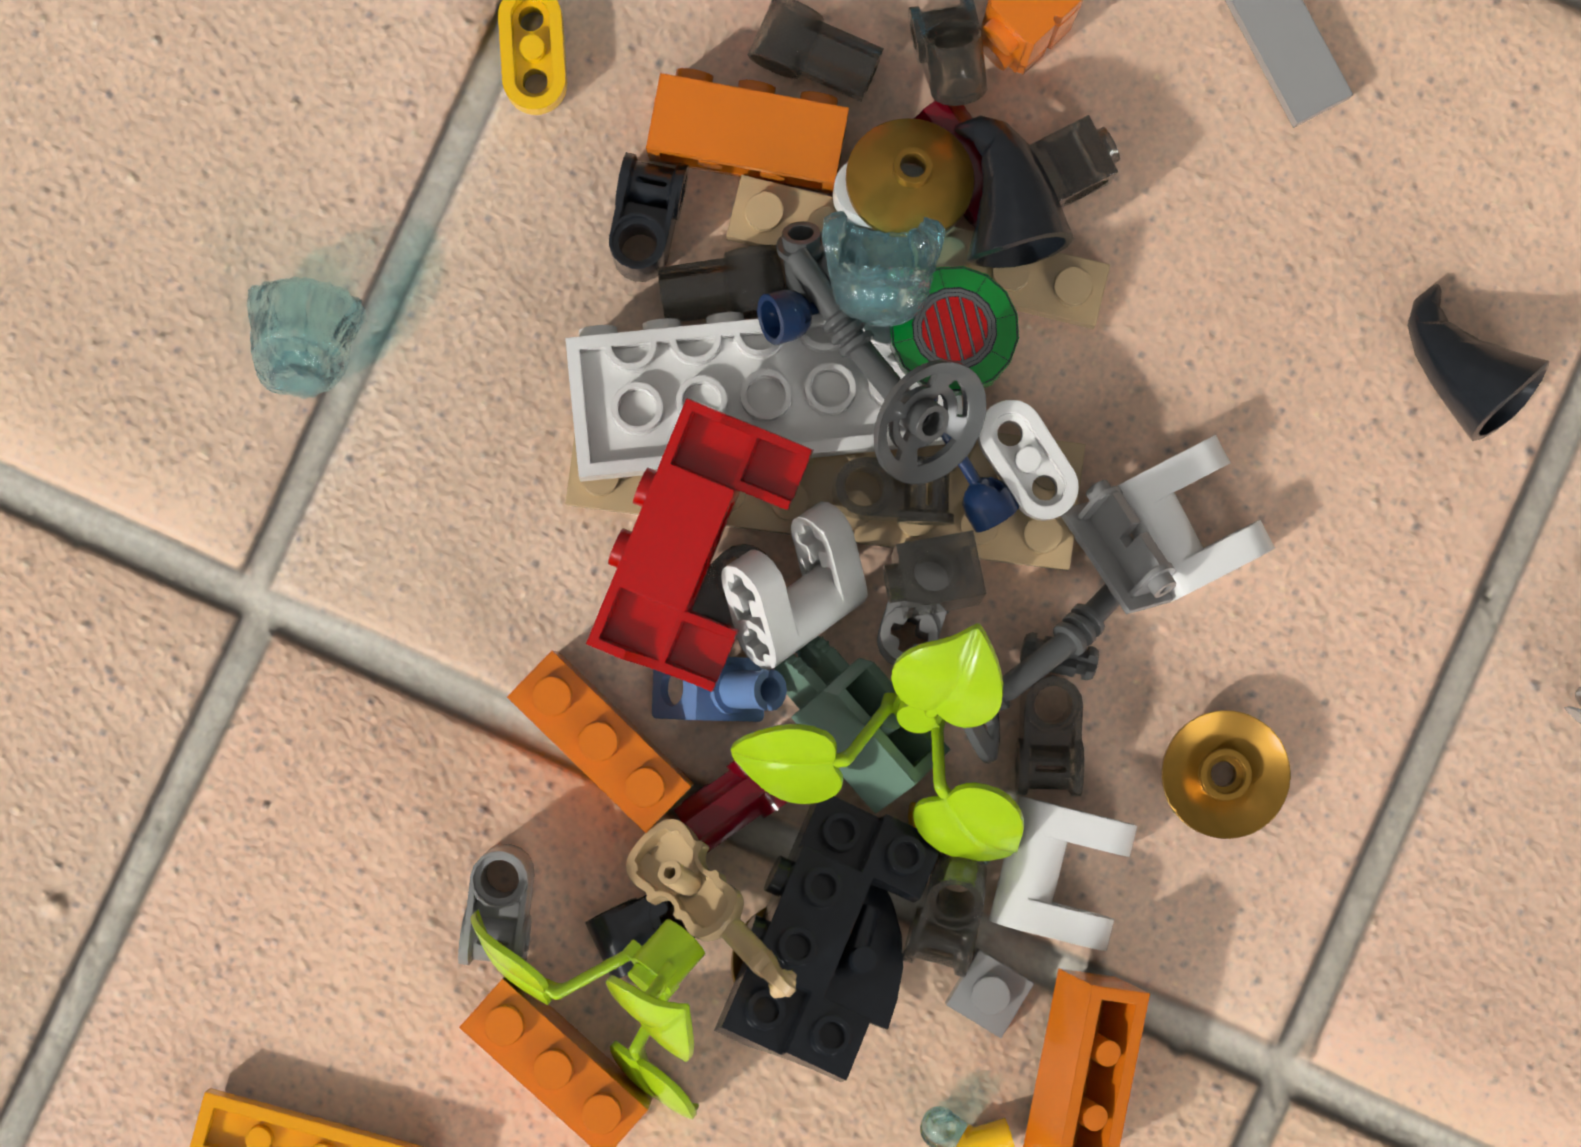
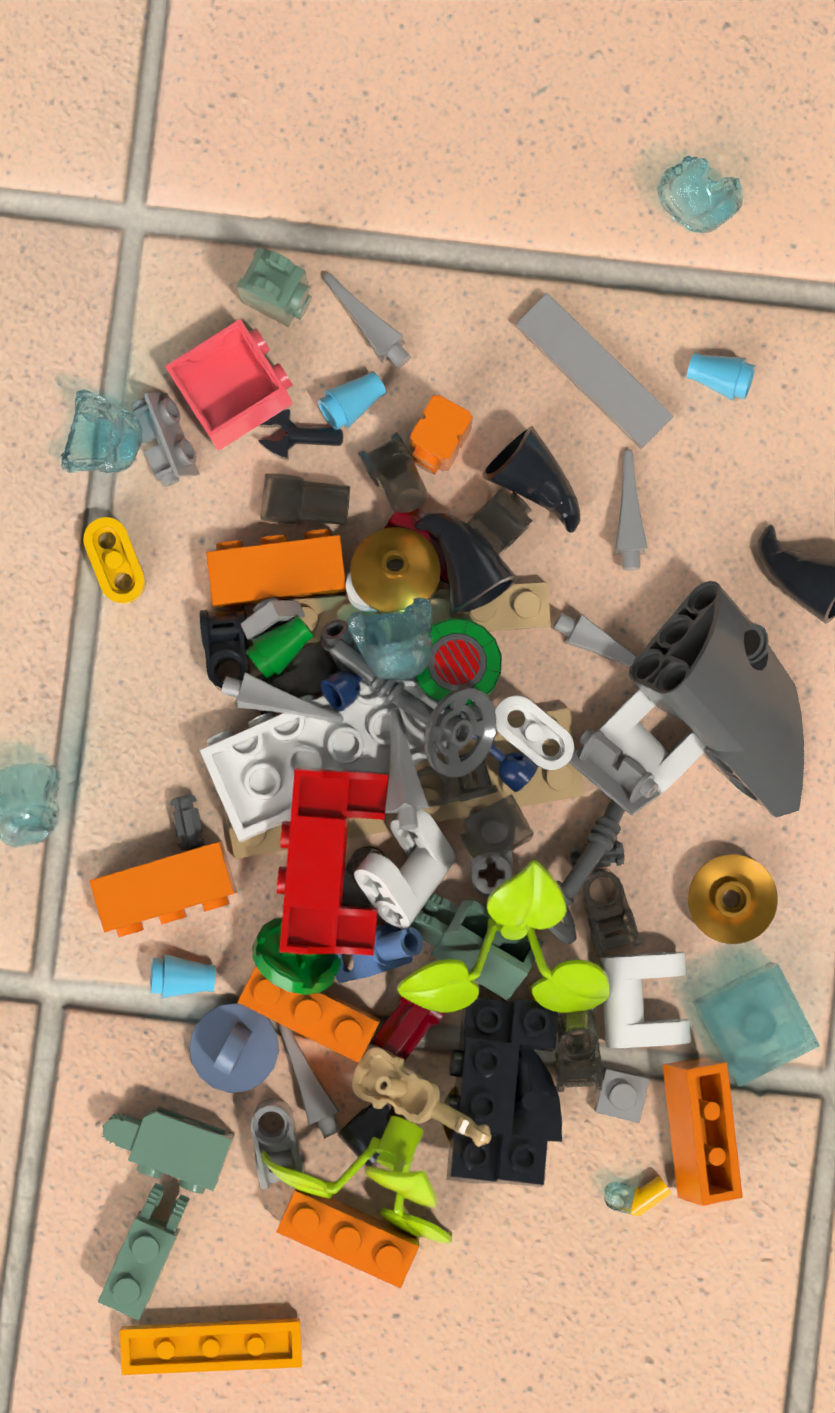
camera: 15 degrees left, 0 degrees up
(267, 1003) = (142, 1257): none -> sand green hinge
(357, 866) = (172, 1146): none -> sand green hinge
(441, 640) = (179, 976): none -> medium azure cone
(456, 513) = (164, 889): none -> orange brick
(483, 760) = (234, 1048): none -> sand blue tile
(517, 434) = (187, 822): none -> dark grey piece
(572, 868) = (316, 1100): none -> light grey piece
(595, 677) = (292, 971): none -> green tile
(671, 289) = (259, 695): none -> light grey piece
(718, 232) = (279, 646): none -> green cone
(721, 192) = (270, 615): none -> light grey plate
(828, 476) = (404, 788): none -> light grey piece
(1140, 114) = (534, 473): none -> black hat
(1144, 359) = (589, 637): none -> light grey piece
(1204, 953) = (756, 1023): none -> clear light blue brick
(1244, 235) = (630, 533): none -> light grey piece
(1318, 491) = (732, 692): none -> dark grey panel
(1437, 59) = (723, 374): none -> medium azure cone

